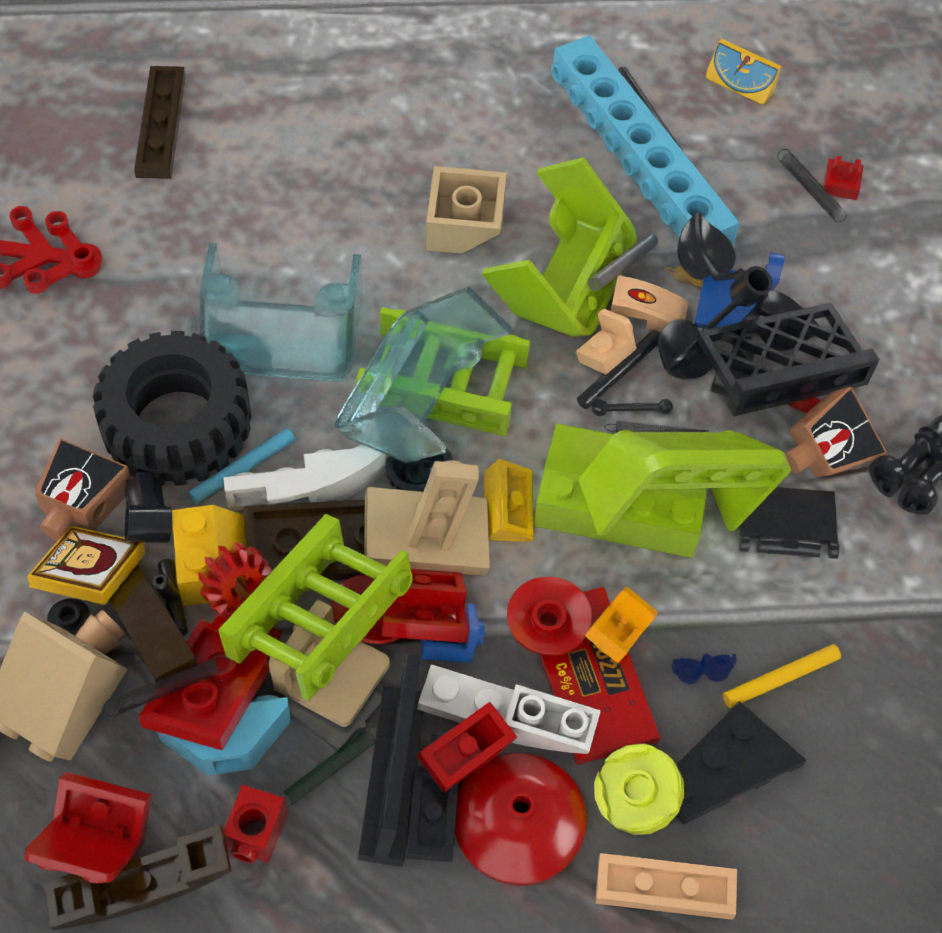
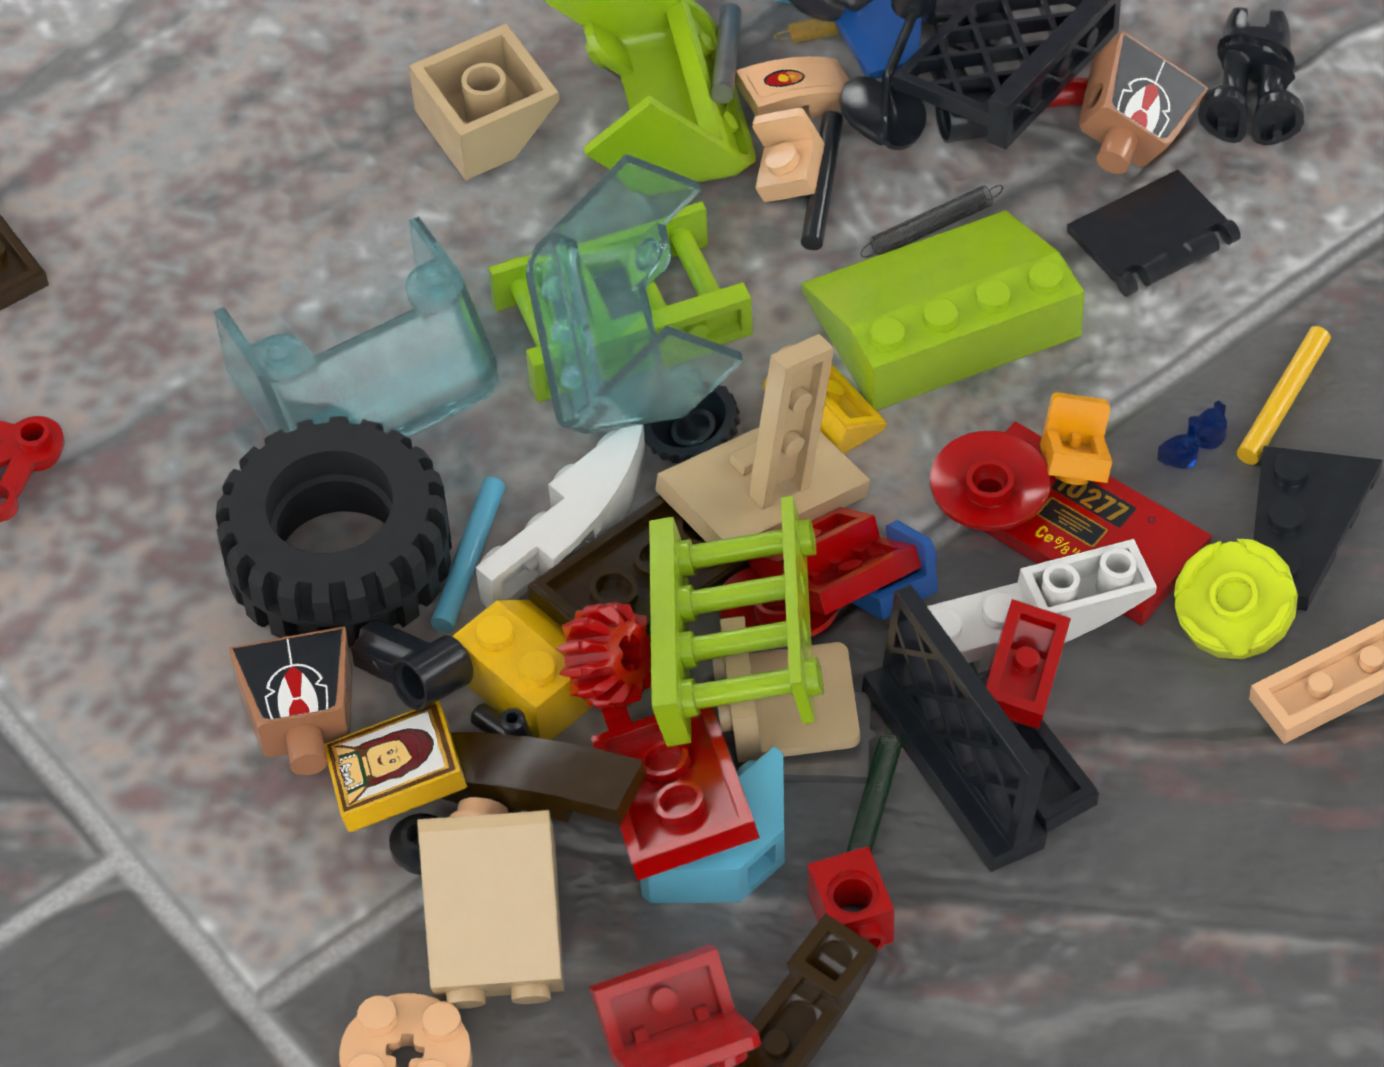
camera: 30 degrees left, 5 degrees down
(209, 664) = (631, 809): black piece -> none
(516, 845) = (1138, 741): red dish -> none
(601, 407) = (836, 235): black hinge -> none
(728, 462) = (1061, 195): lime windscreen -> none

